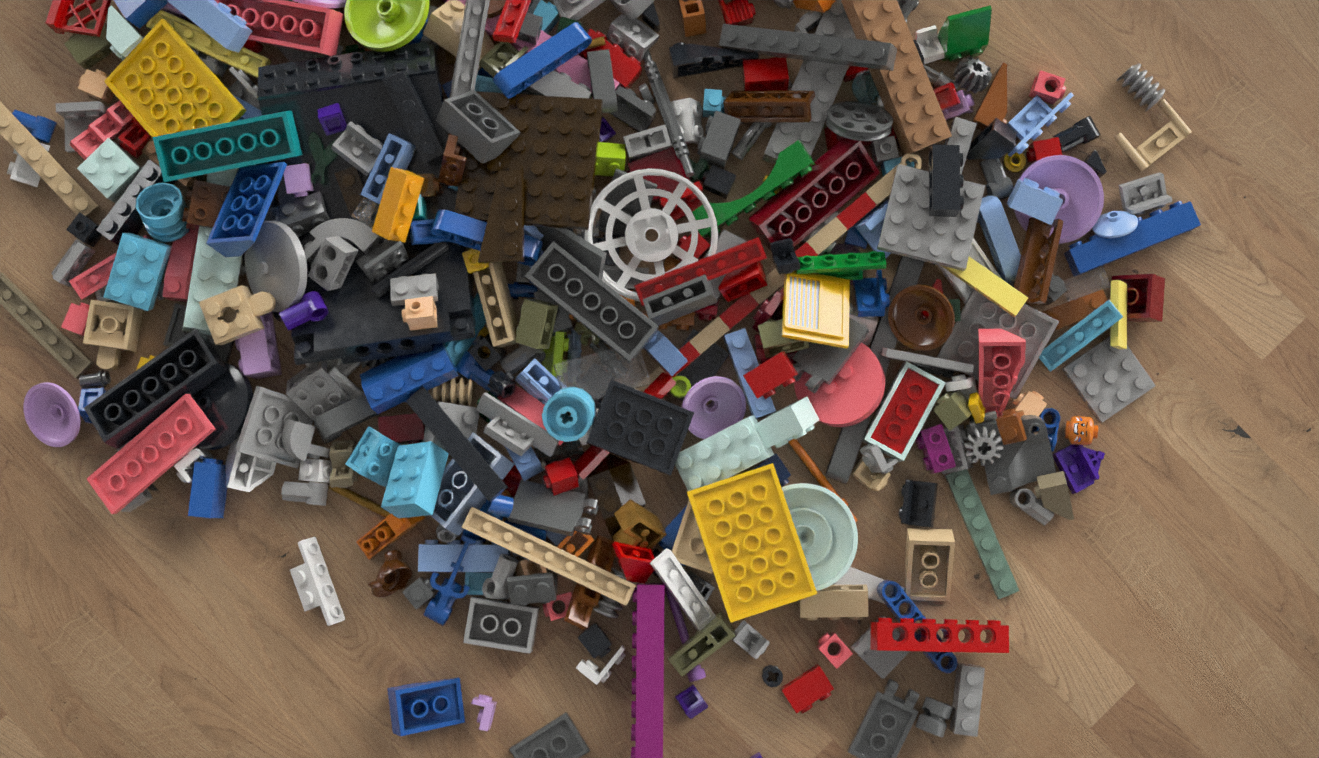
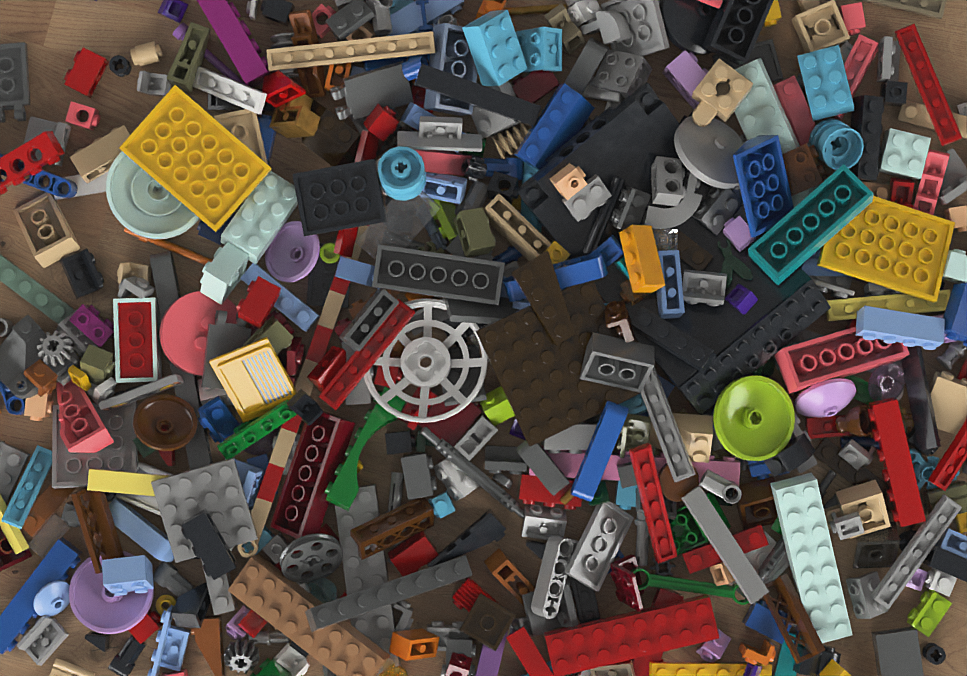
camera: 145 degrees right, 5 degrees up
(49, 217) = (928, 84): none -> red tile
(310, 308) = (663, 132): dark purple piece -> none
(740, 672) = (146, 53): none -> tan brick

